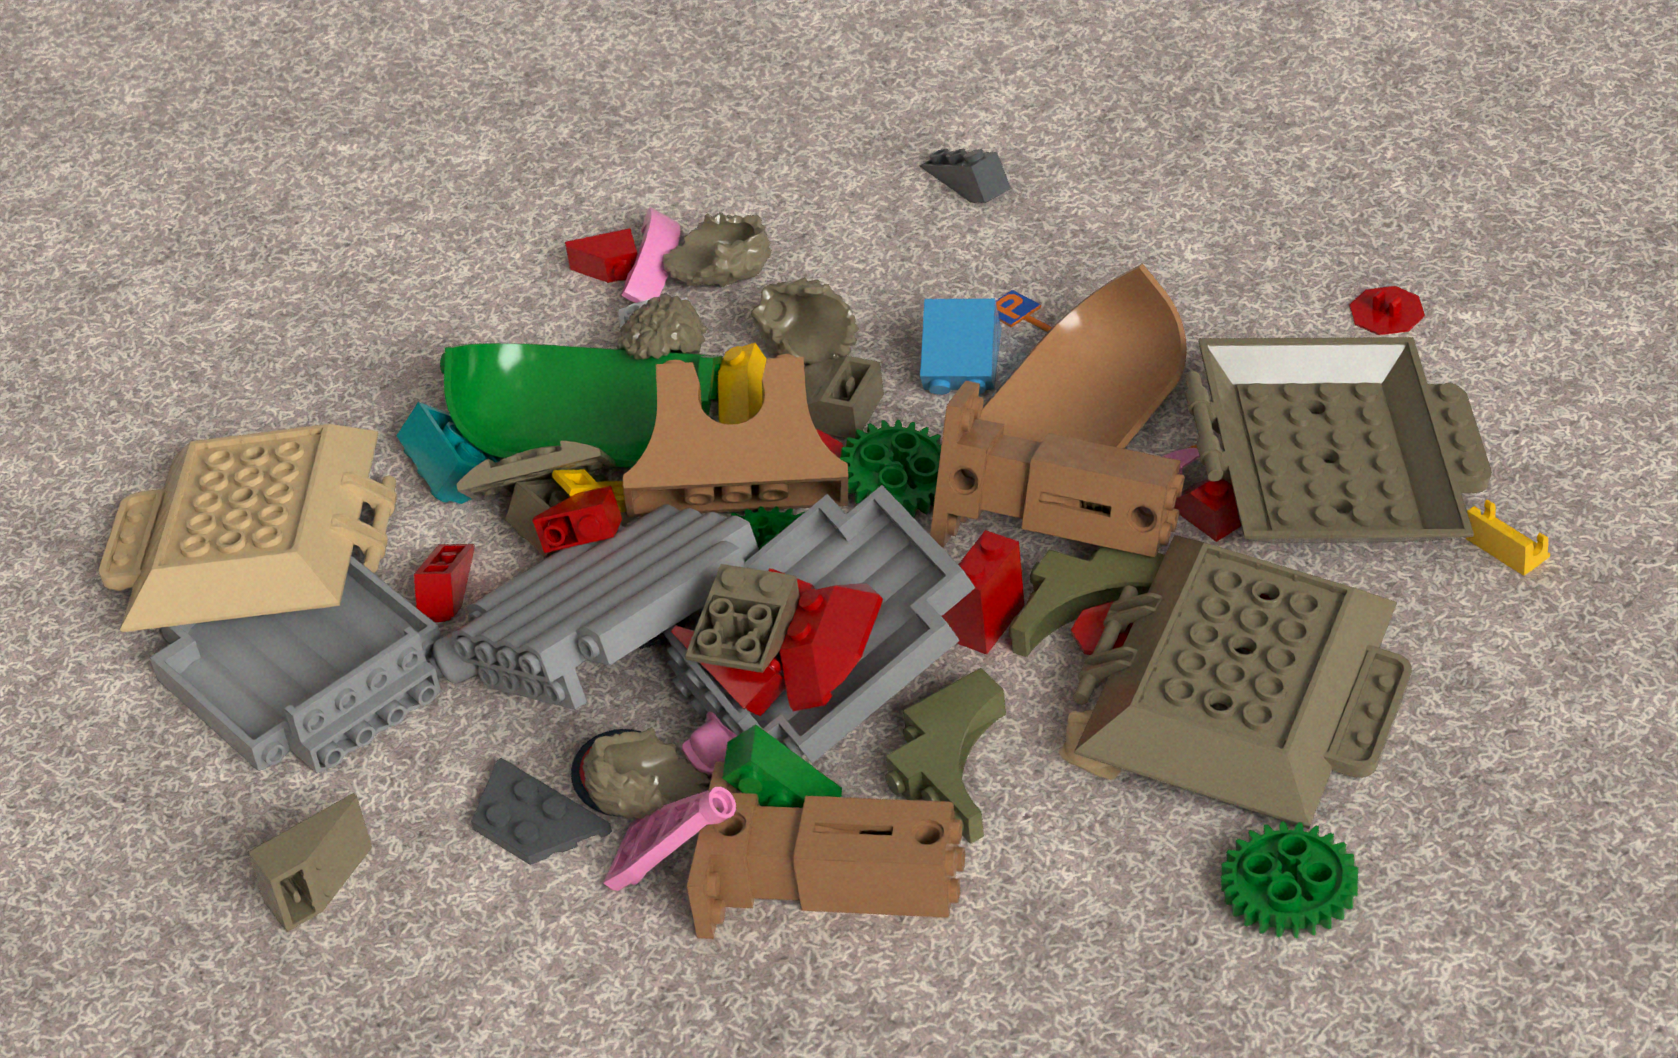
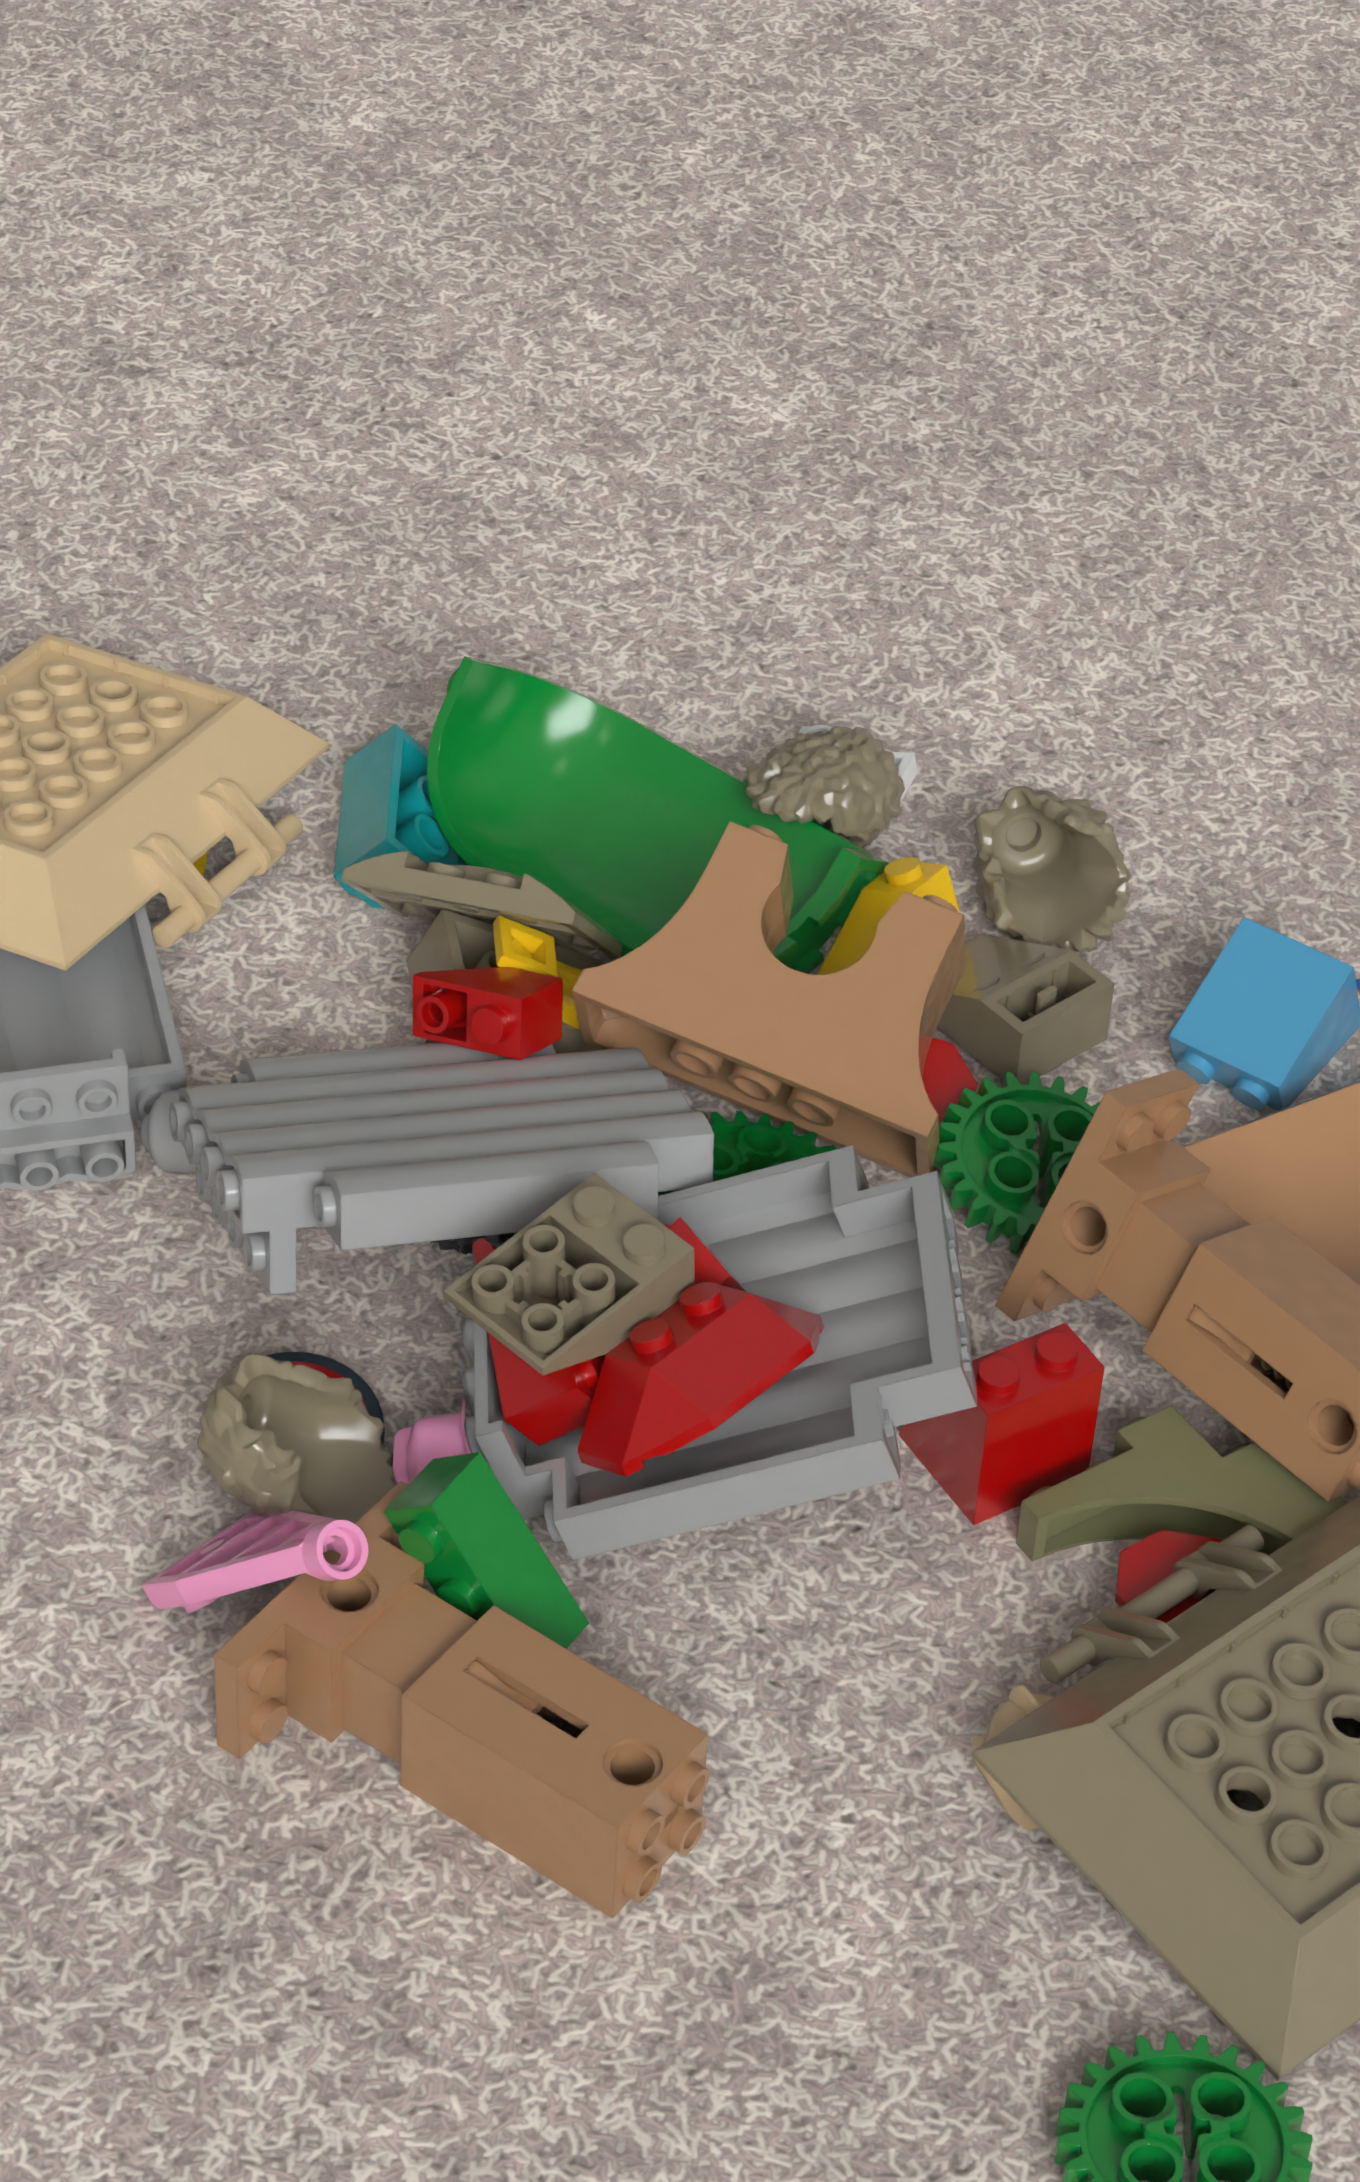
camera: 20 degrees right, 0 degrees up
(443, 581) = (252, 1007): red slope -> none
(531, 816) = (117, 1427): dark grey wing -> none
(603, 256) = (841, 638): red slope -> none
(648, 273) = (907, 669): bright pink slope -> none
(720, 251) = (1005, 707): dark tan hair -> none
(938, 741) = (798, 1624): olive arch -> none

